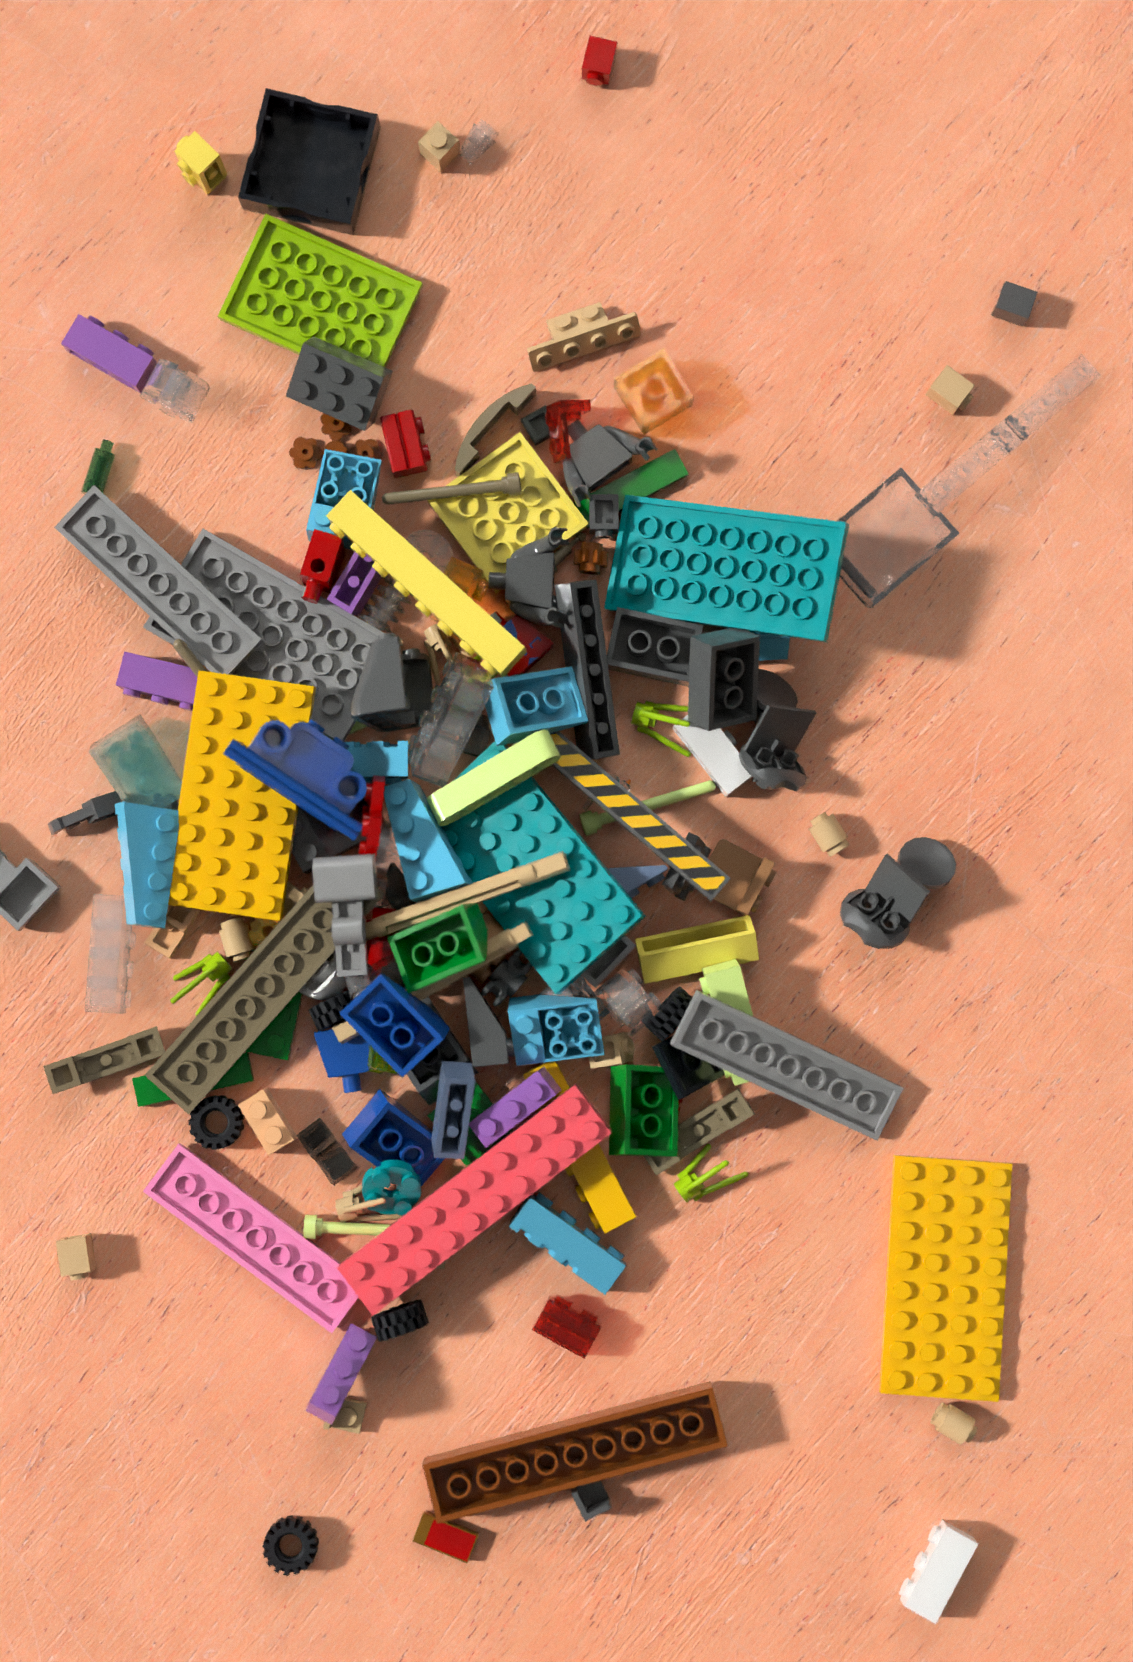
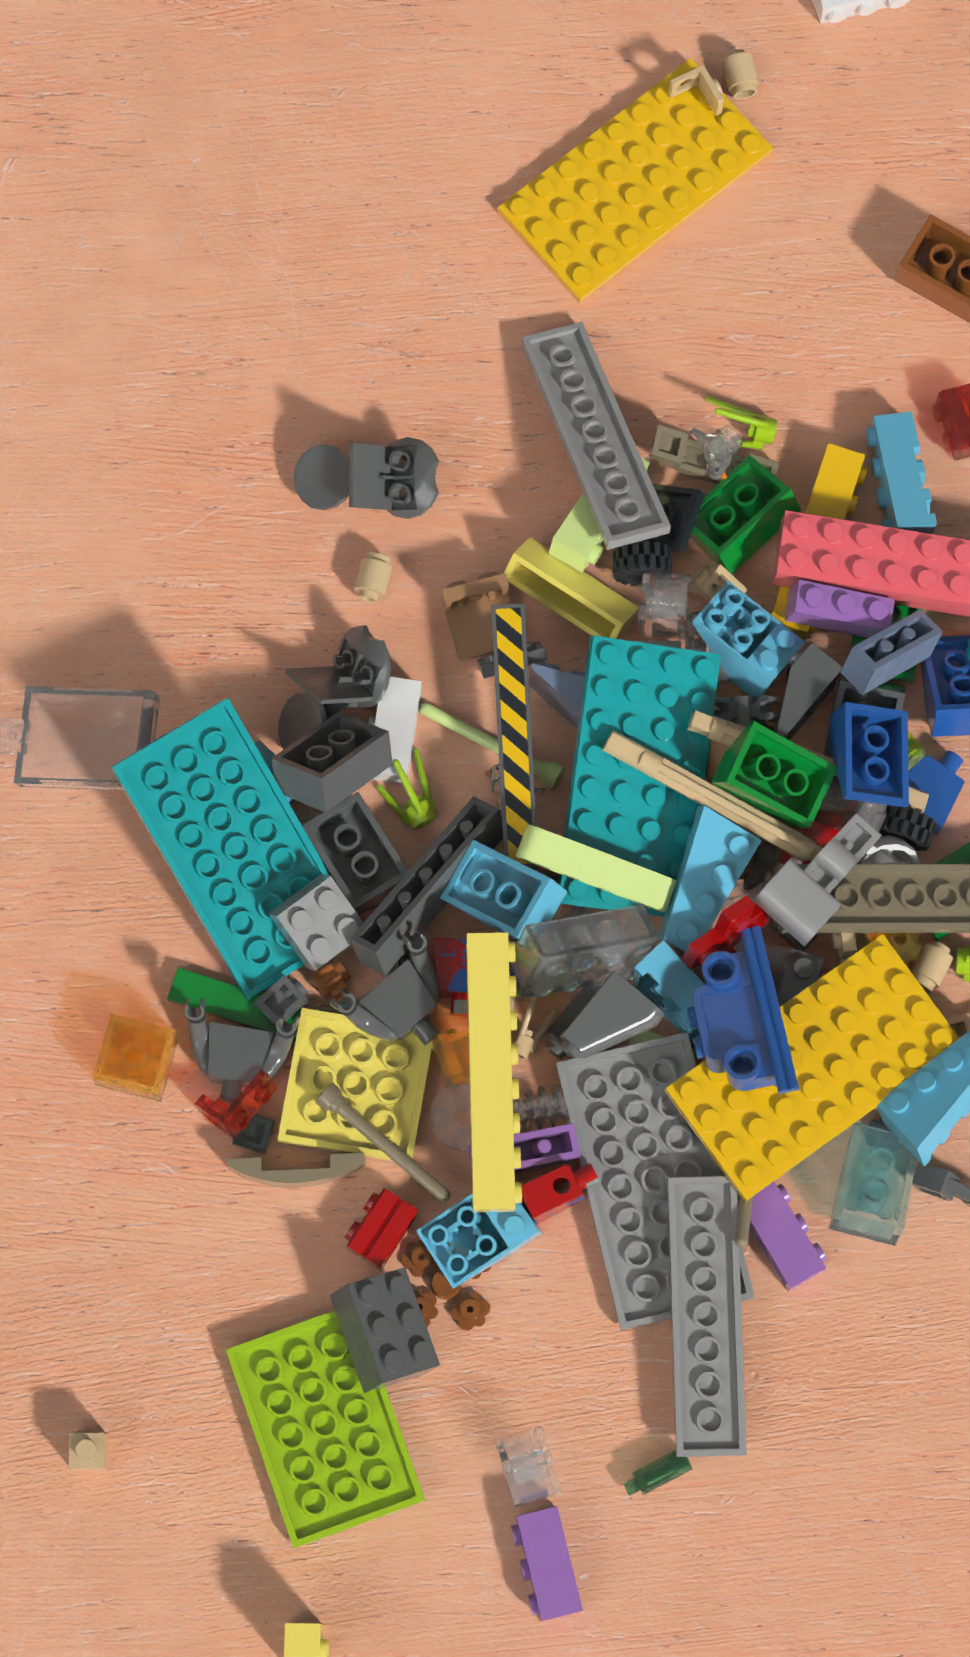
camera: 135 degrees left, 10 degrees down
(309, 161) = (209, 1554): black tile -> none
(479, 140) = (50, 1424): clear cone -> none
(581, 334) = (140, 1173): tan bracket -> none
(630, 576) = (317, 921): none -> light grey brick
(700, 1139) = (718, 449): none -> clear animal
(962, 1389) = (709, 86): none -> tan bracket

